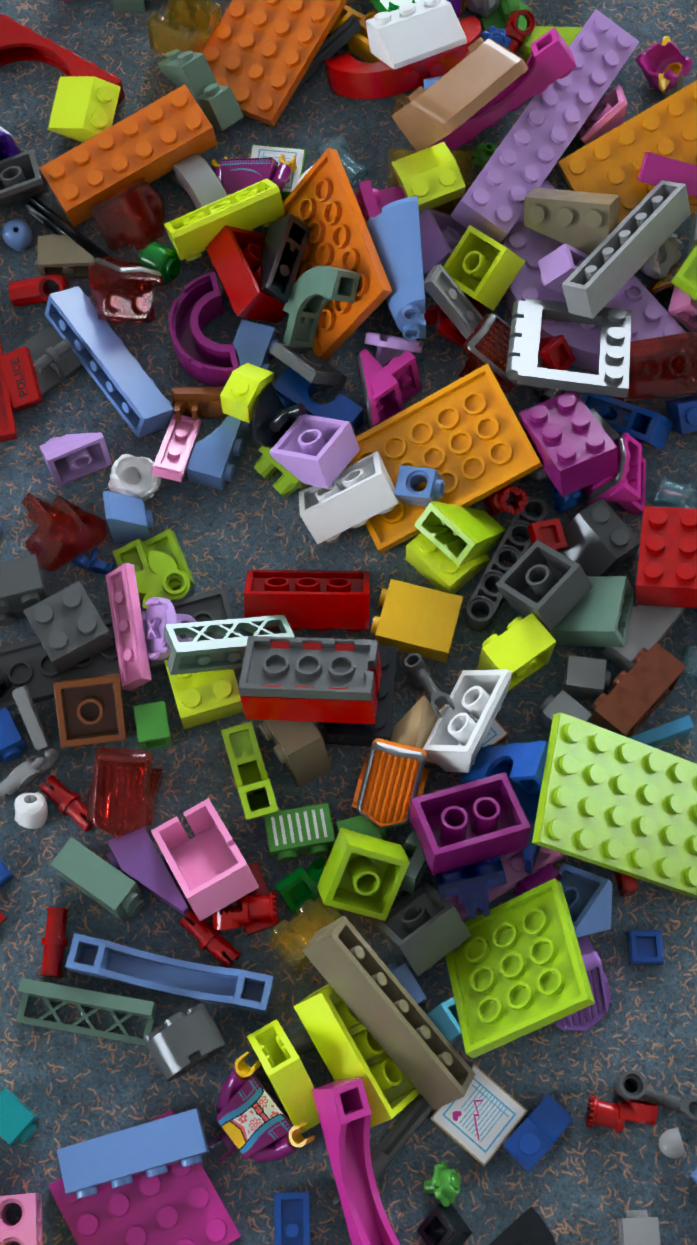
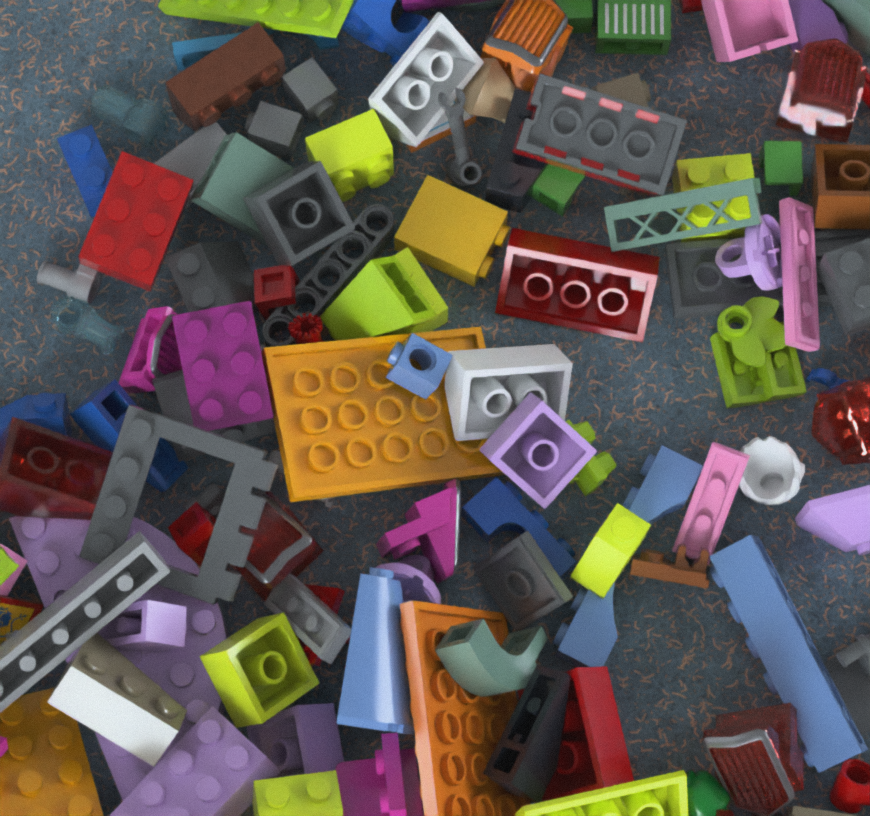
camera: 170 degrees left, 5 degrees up
(127, 517) = (786, 416): medium blue slope -> none
(188, 316) = (676, 657): magenta brick -> none
(249, 771) = (676, 72): lime arch -> none
(271, 418) = (582, 507): black shield -> none

